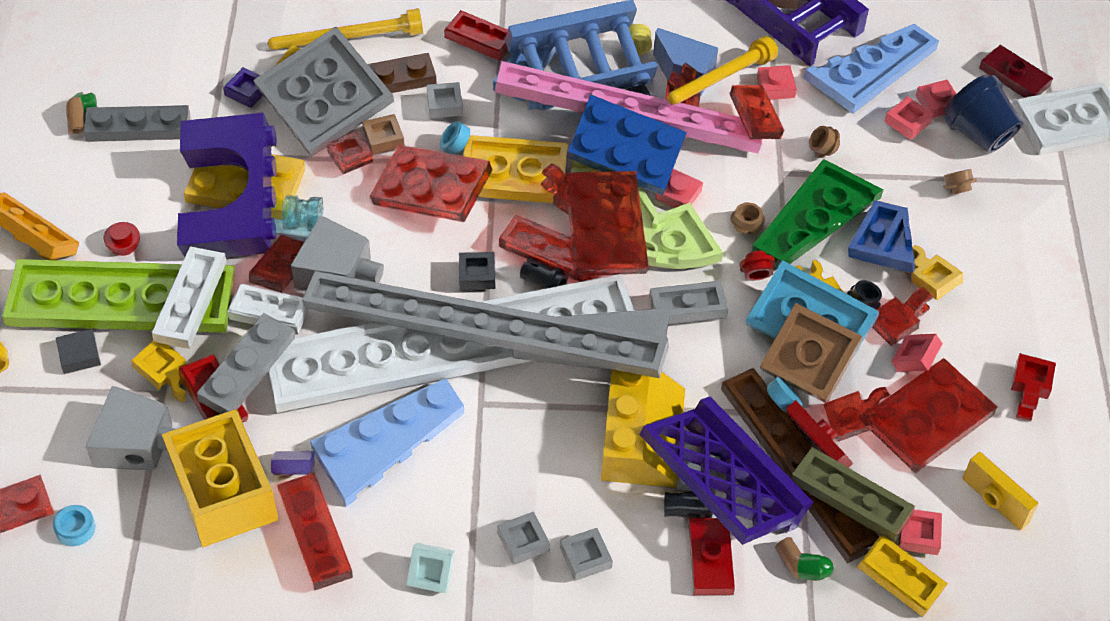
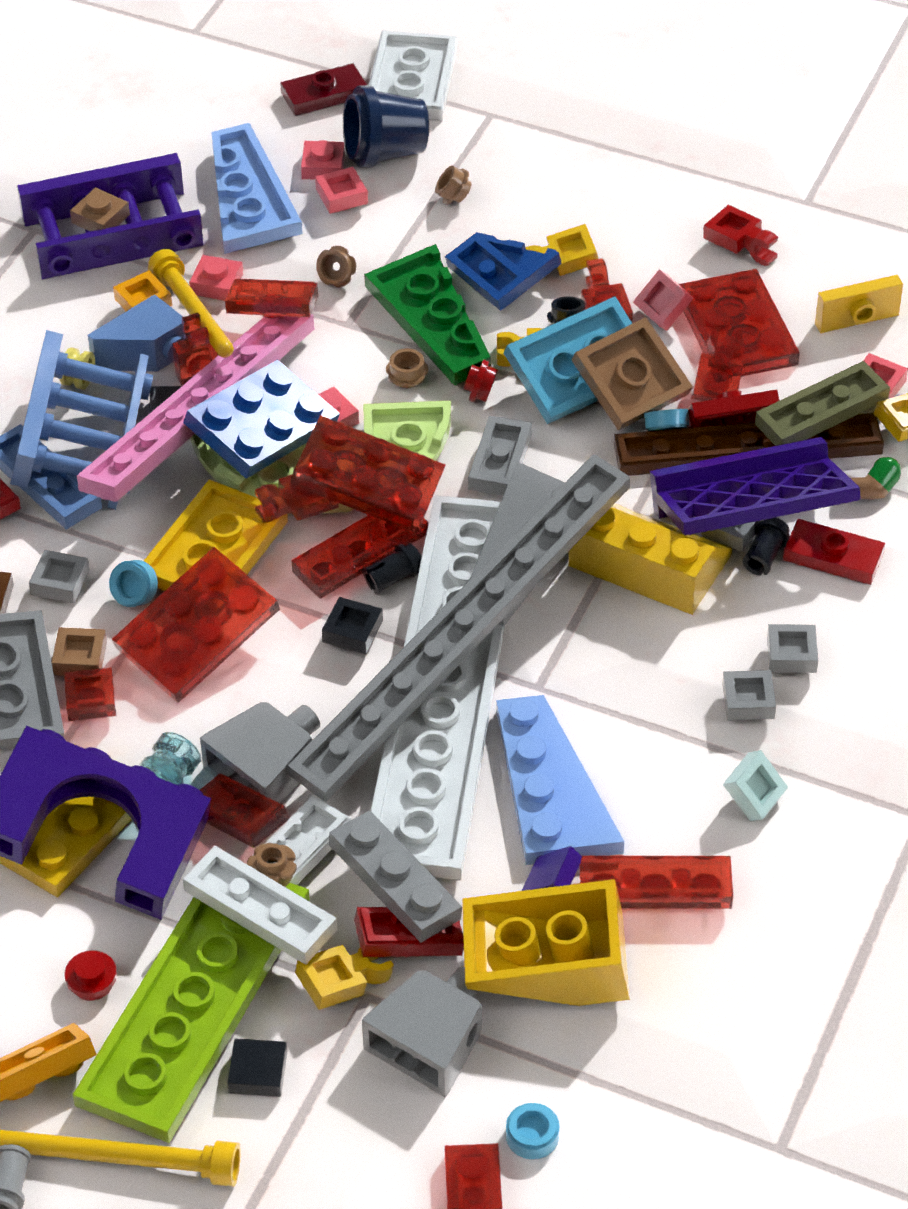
camera: 65 degrees left, 5 degrees down
(229, 300) = (282, 870): none -> medium nougat plate
(730, 45) = (139, 289): none -> light orange plate

